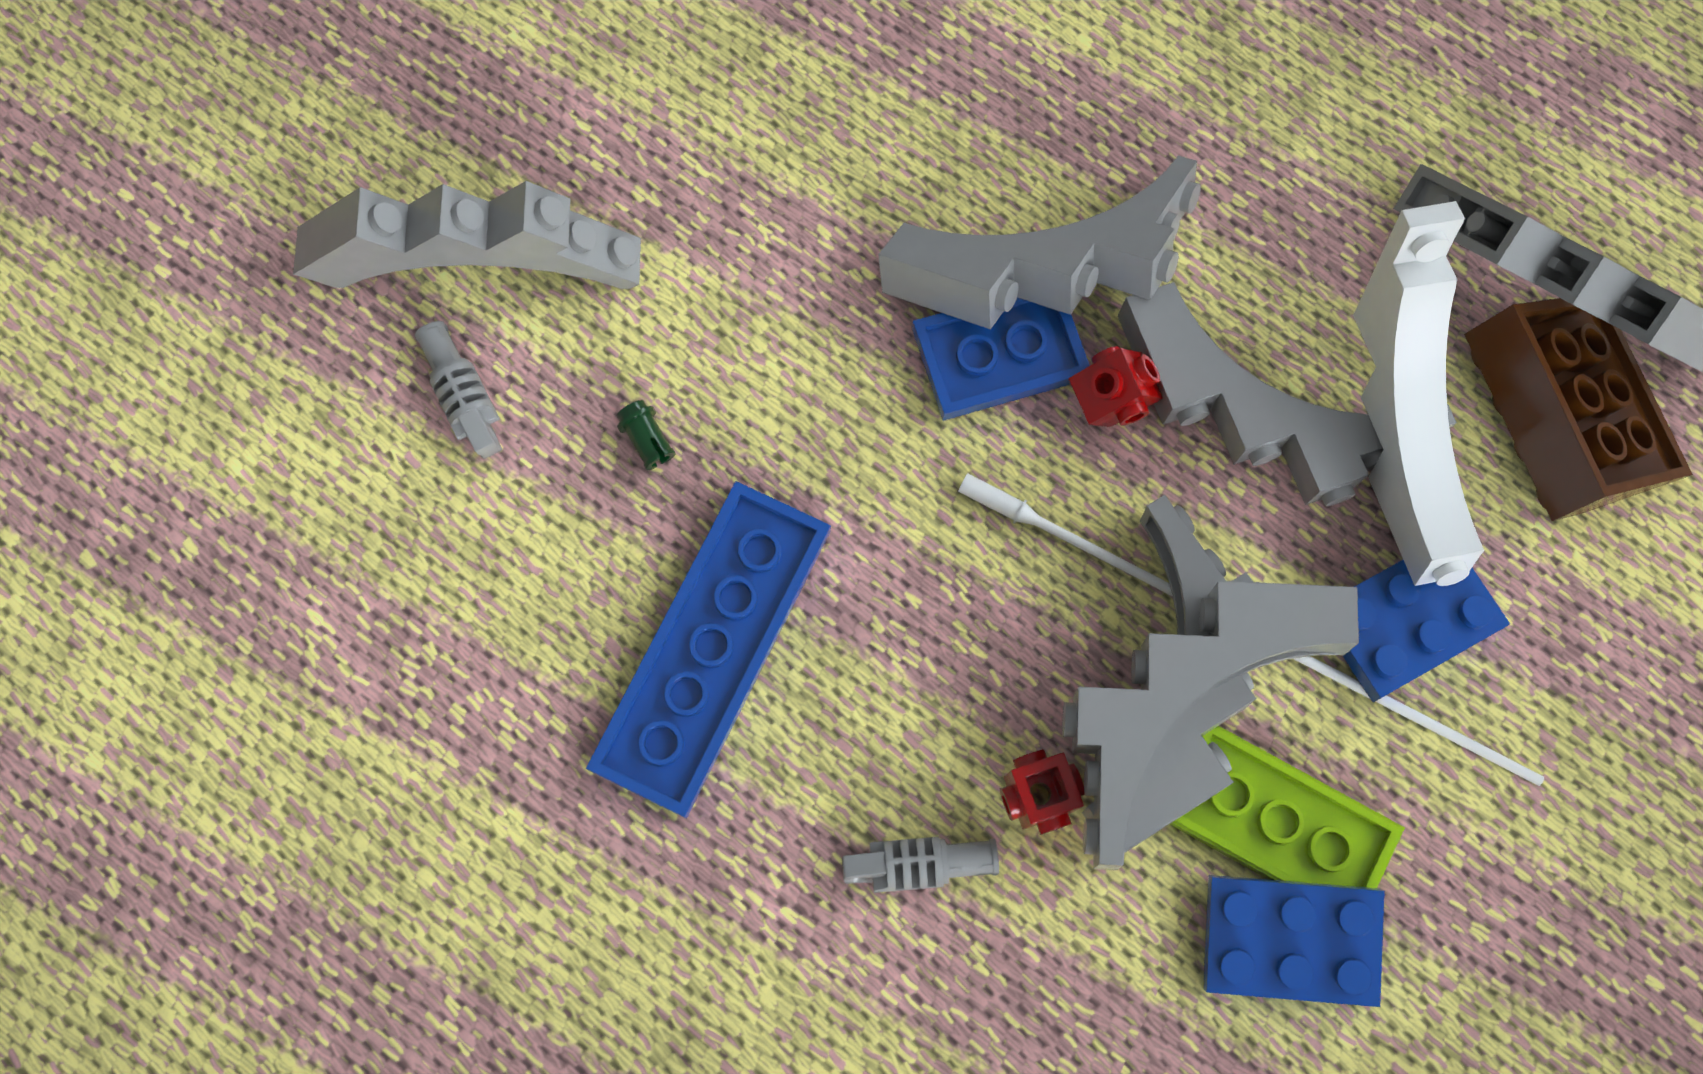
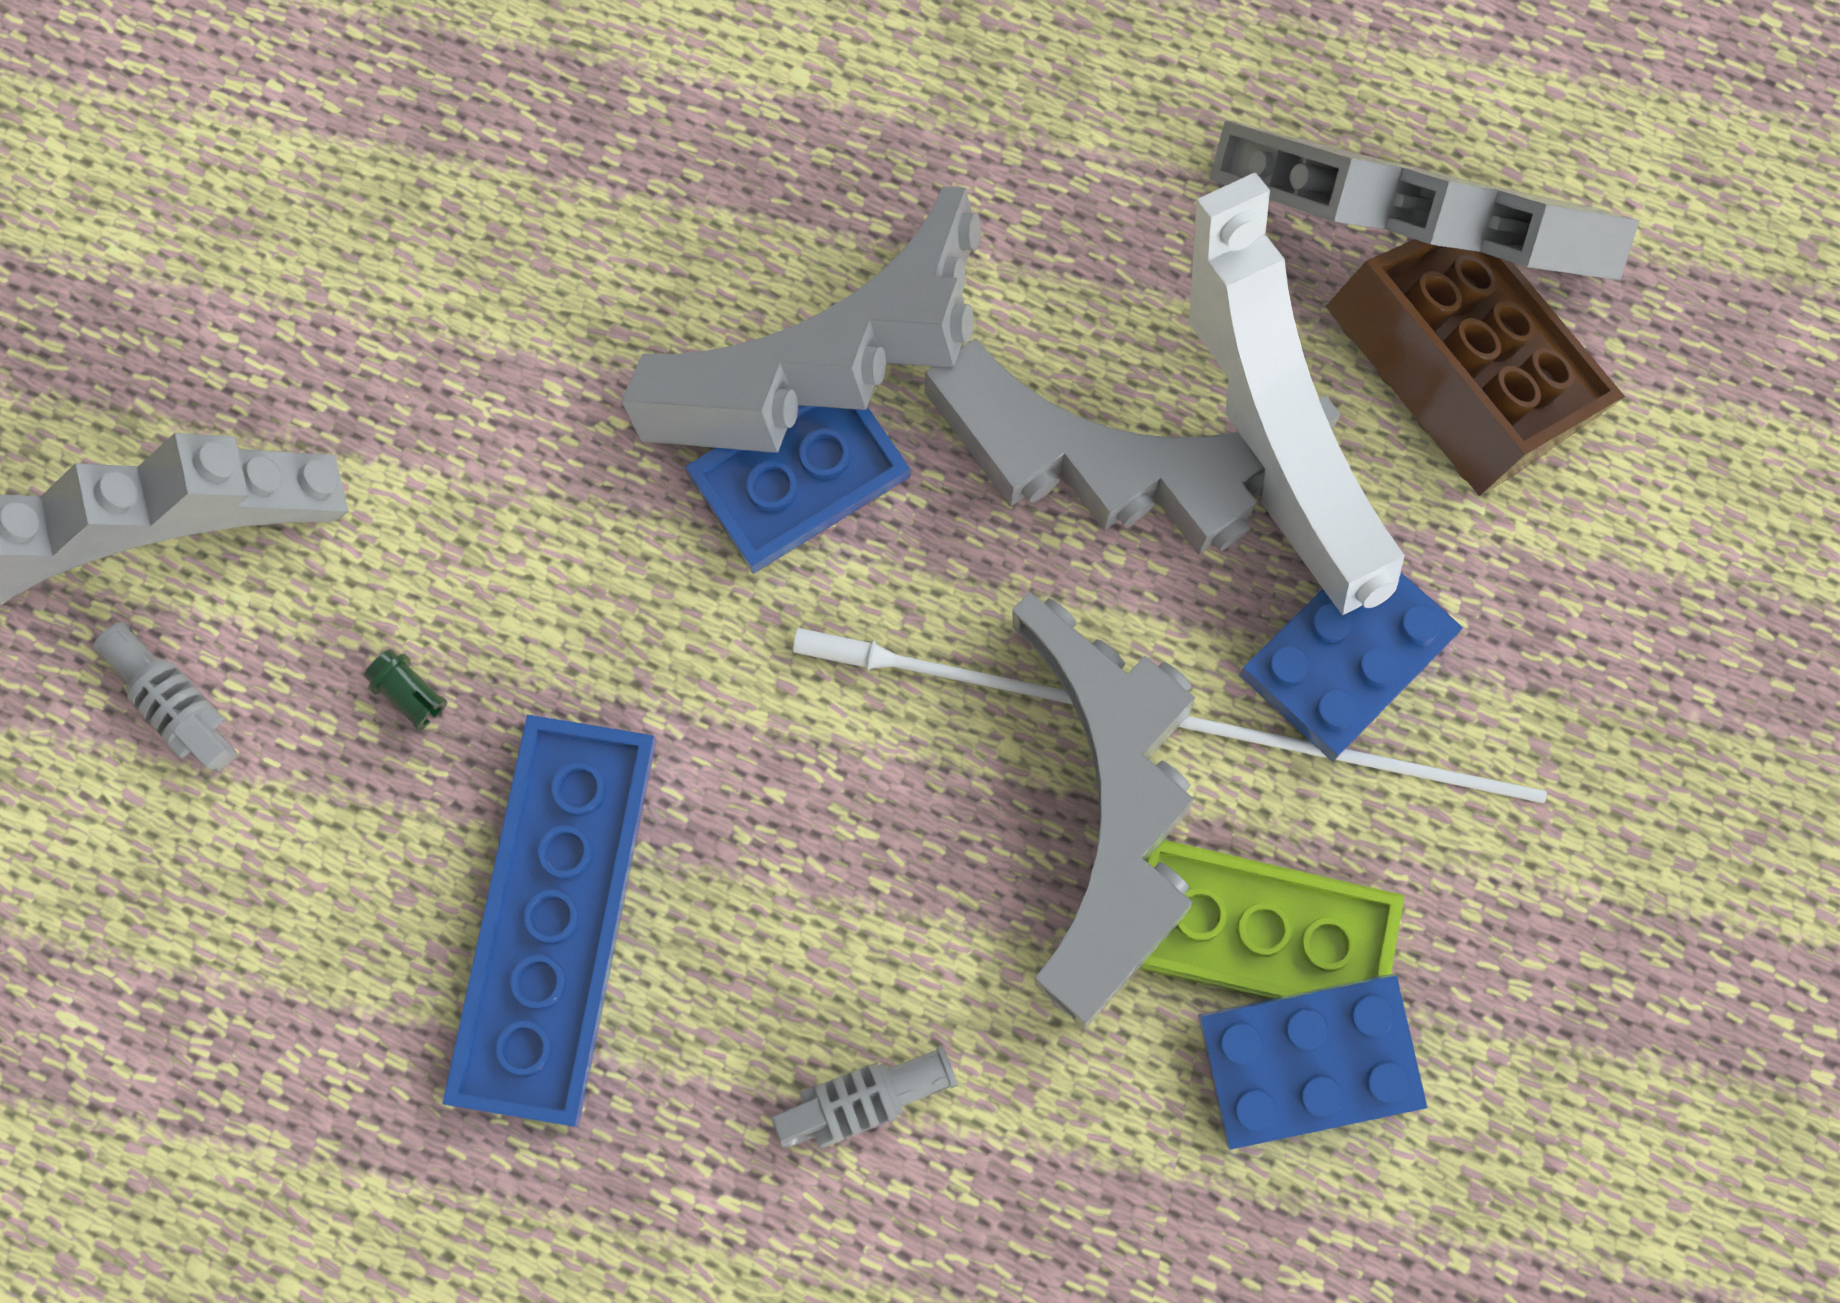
camera: 15 degrees left, 0 degrees up
(1060, 780) = (988, 950): red brick -> none
(1117, 387) = (943, 479): red brick -> none
(1247, 630) = (1163, 723): light grey arch -> none

